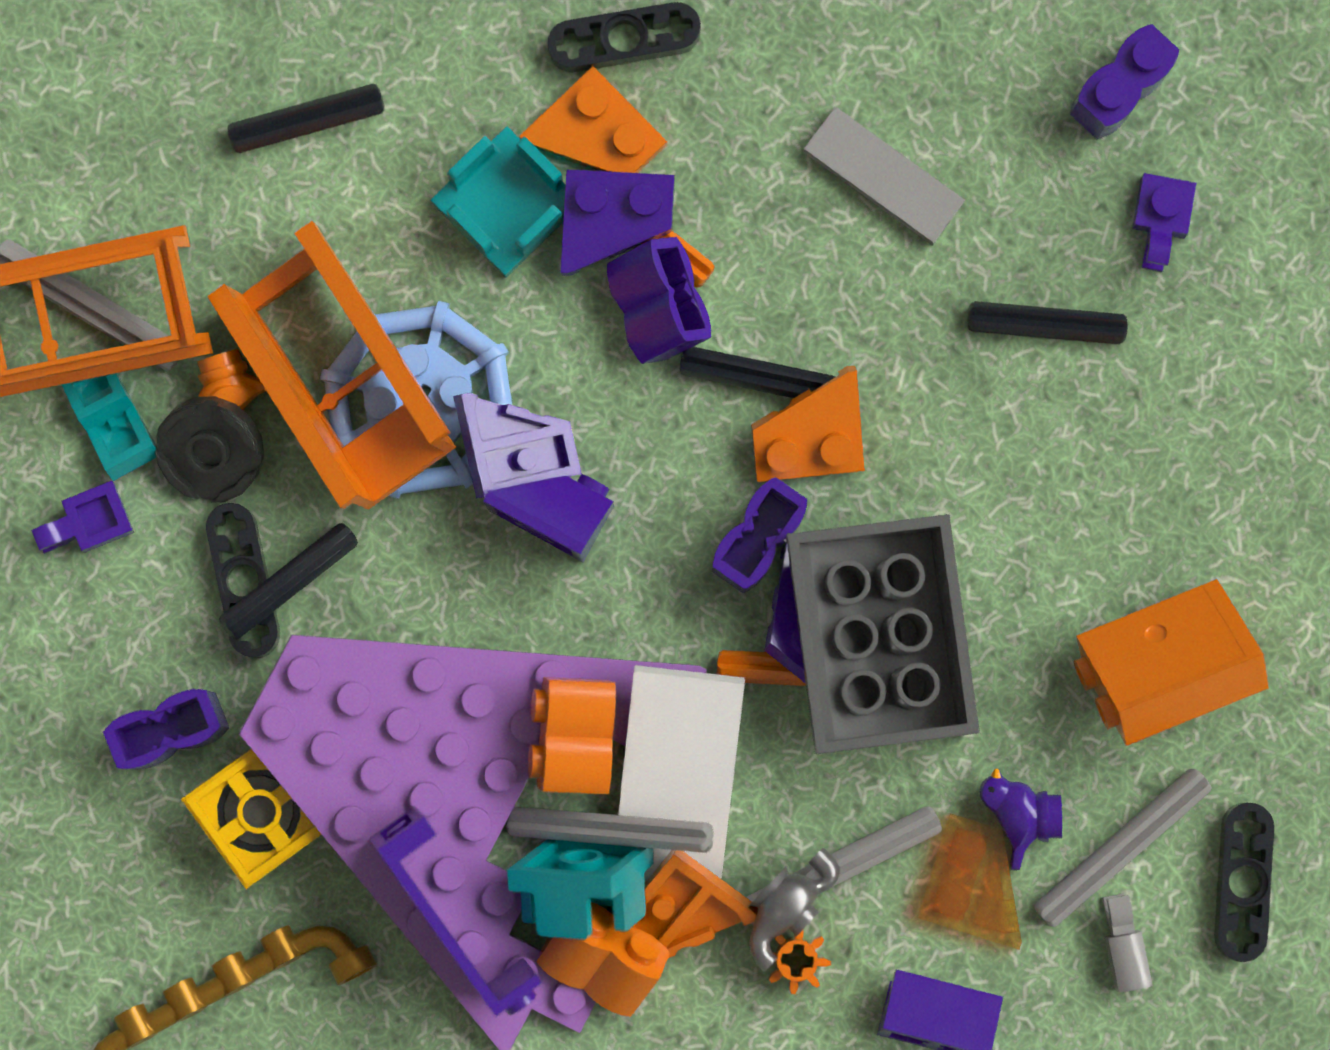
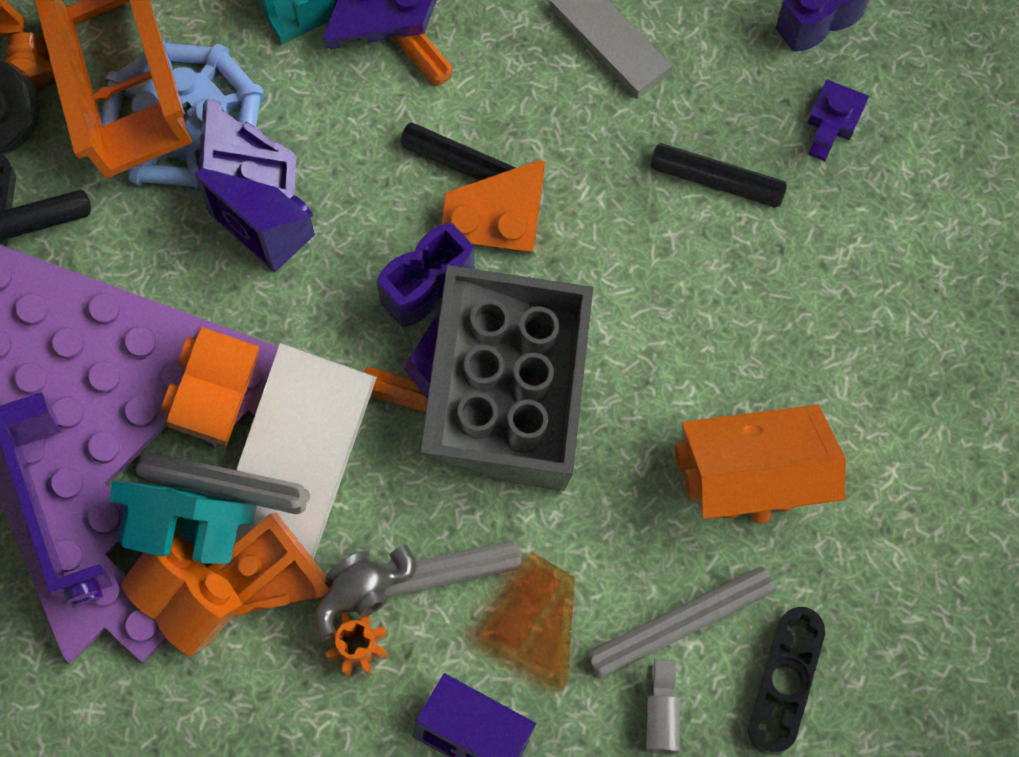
camera: 15 degrees right, 15 degrees down
(658, 300) = (397, 77): dark purple brick -> none
(1022, 813) = (596, 567): dark purple animal -> none

